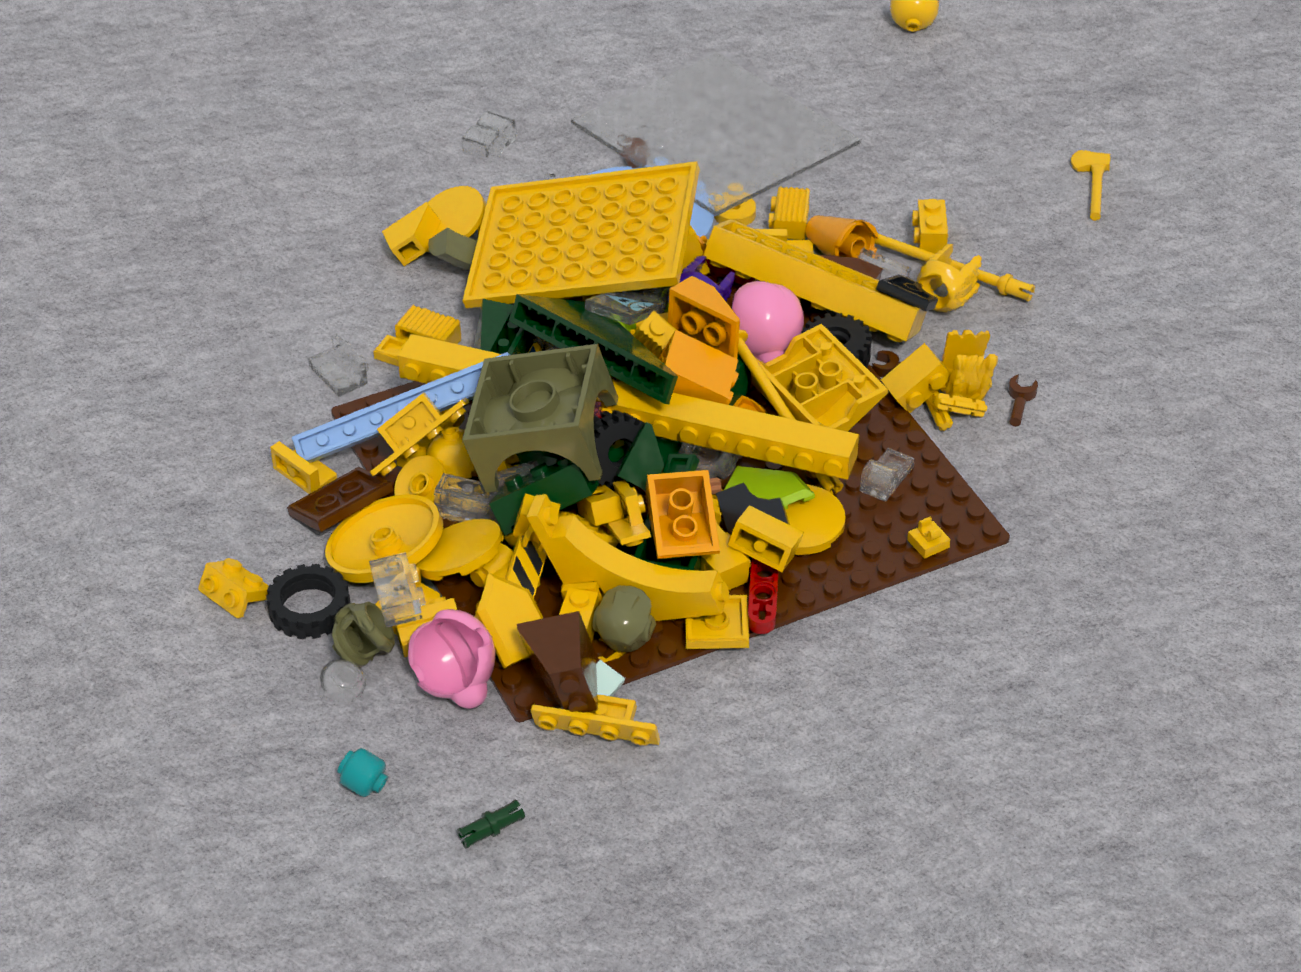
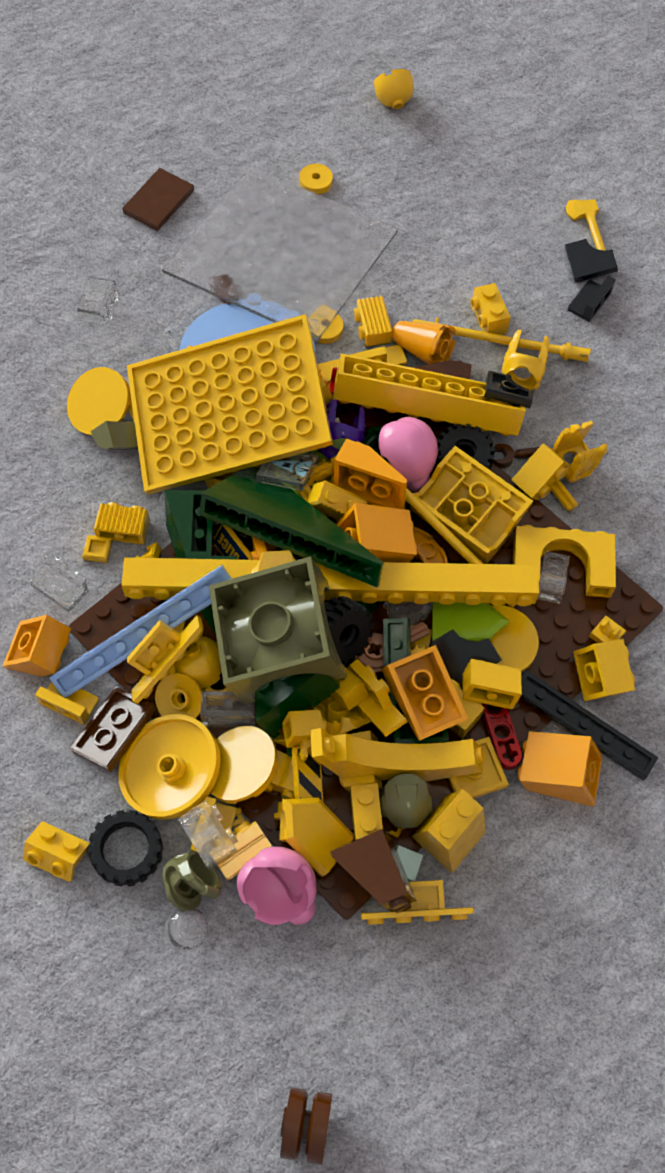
camera: 20 degrees left, 20 degrees up
(293, 413) = (37, 646): none -> light orange slope
(362, 772) = (242, 1027): teal head -> none
(391, 857) = (305, 1125): none -> reddish brown wheel
(411, 234) = (72, 425): yellow slope -> none
(490, 823) = (368, 1045): dark green pin -> none
(598, 63) = (158, 199): none -> reddish brown tile
(642, 458) = (369, 641): dark green slope -> none
(664, 654) = (452, 829): none -> yellow slope
(787, 77) = (316, 178): none -> yellow piece
(820, 641) = (561, 766): none -> light orange slope
(864, 615) = (584, 723): none -> black tile
(885, 262) = (466, 356): clear tile -> none
(903, 560) = (604, 670): none -> yellow brick
(945, 457) = (592, 548): none -> yellow arch
(960, 405) = (579, 487): yellow axle -> none
(1021, 395) = (618, 459): reddish brown piece -> none
(1063, 244) = (591, 298): none -> black panel
(1072, 208) = (589, 262): none -> black tile

